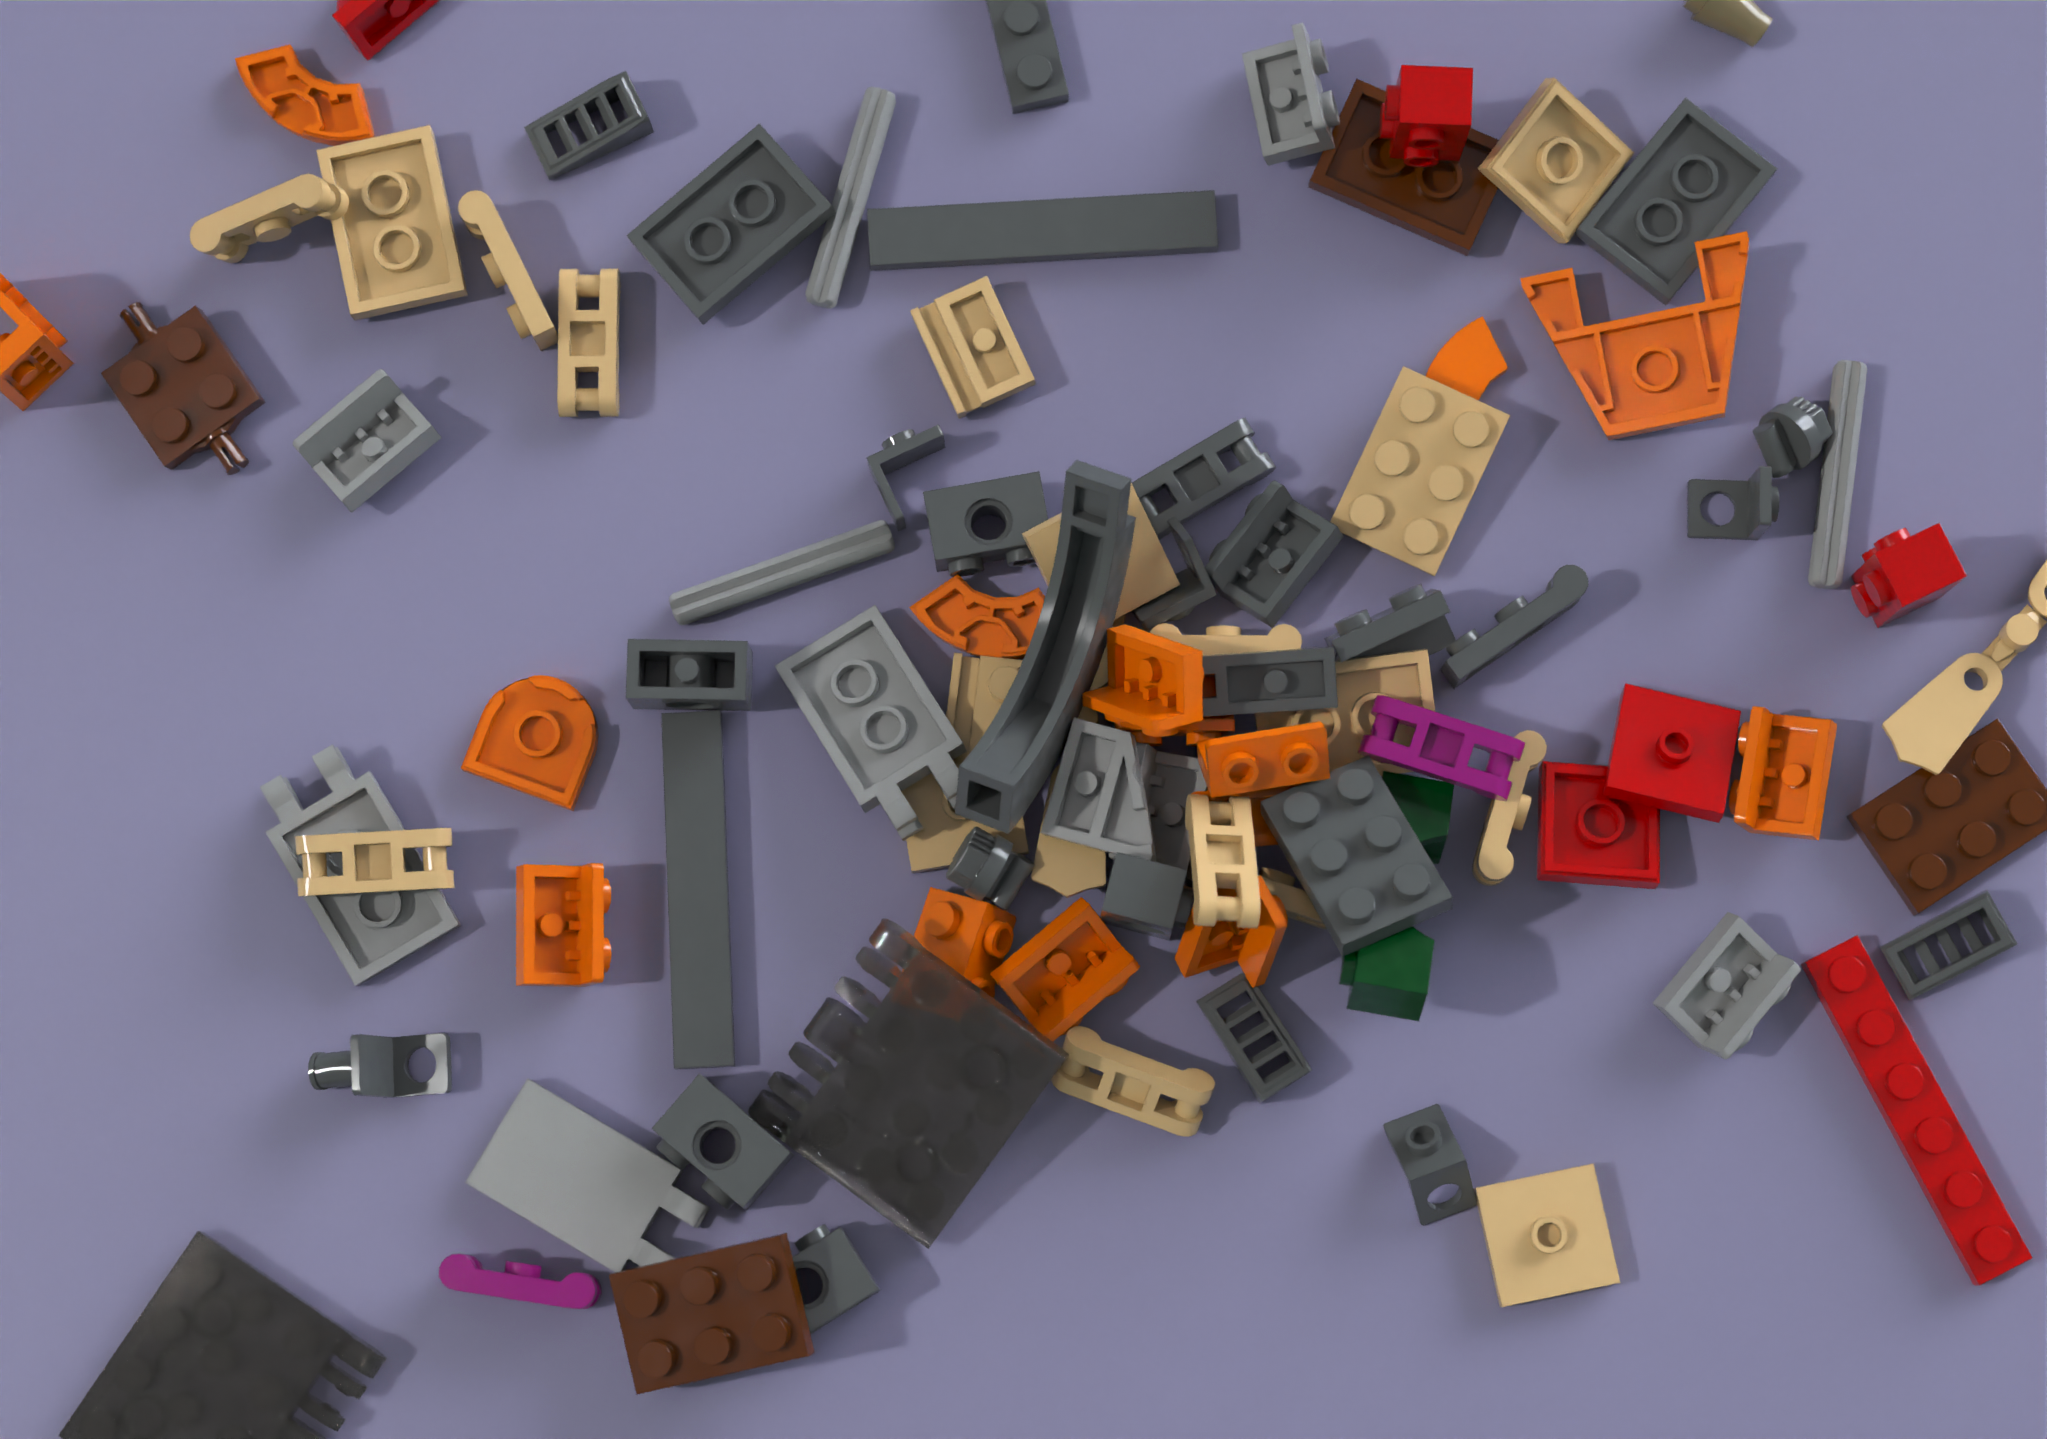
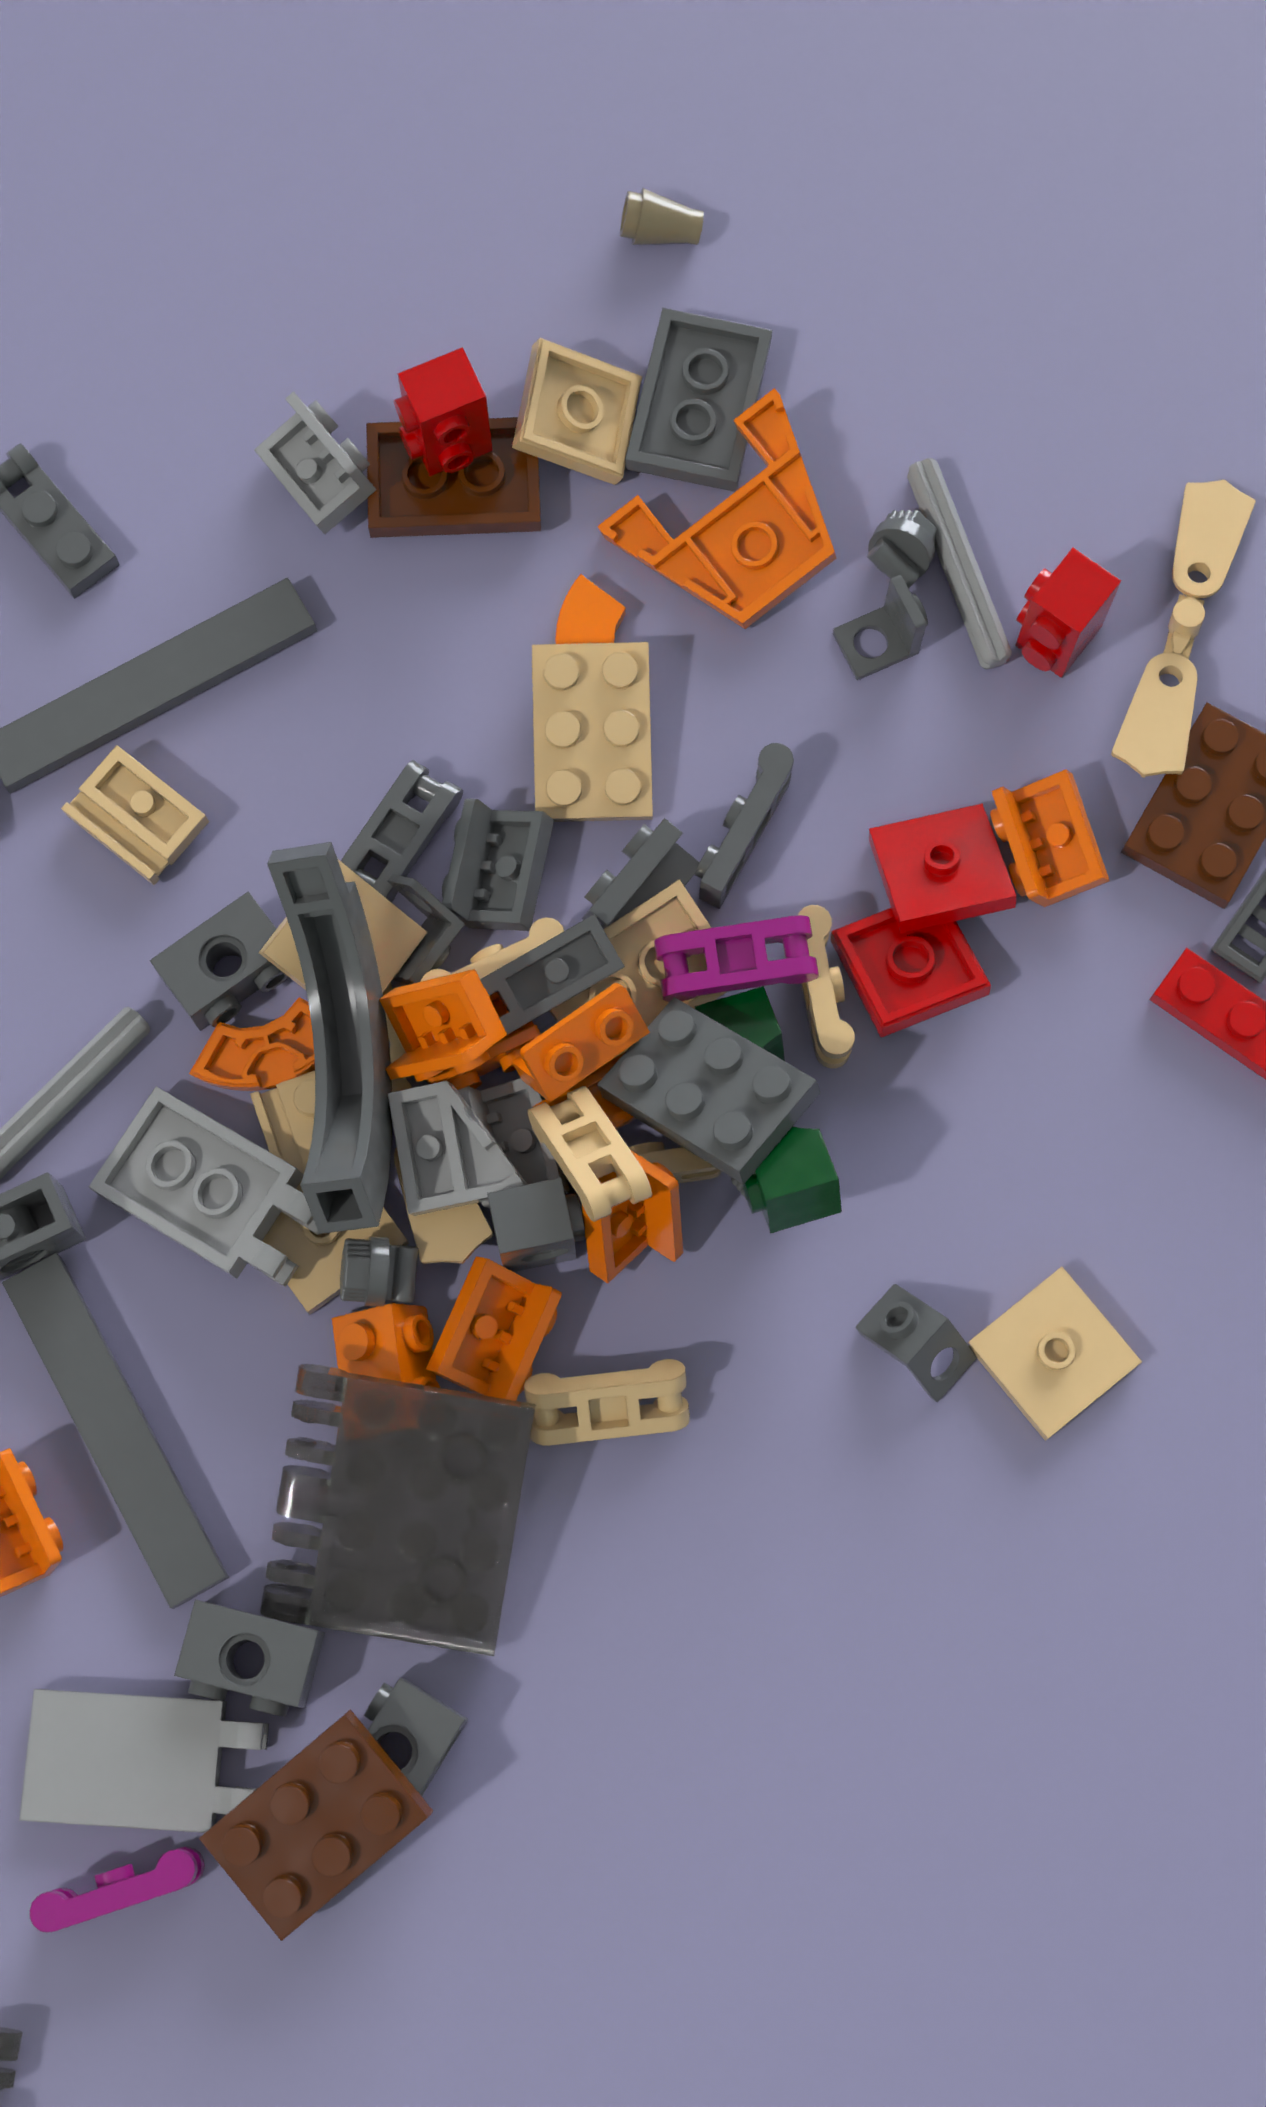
camera: 30 degrees left, 5 degrees down
(898, 452) = (112, 939): dark grey bracket -> none
(1247, 1067) = (729, 1298): dark grey slope -> none
(1726, 987) = (1098, 1049): light grey bracket -> none

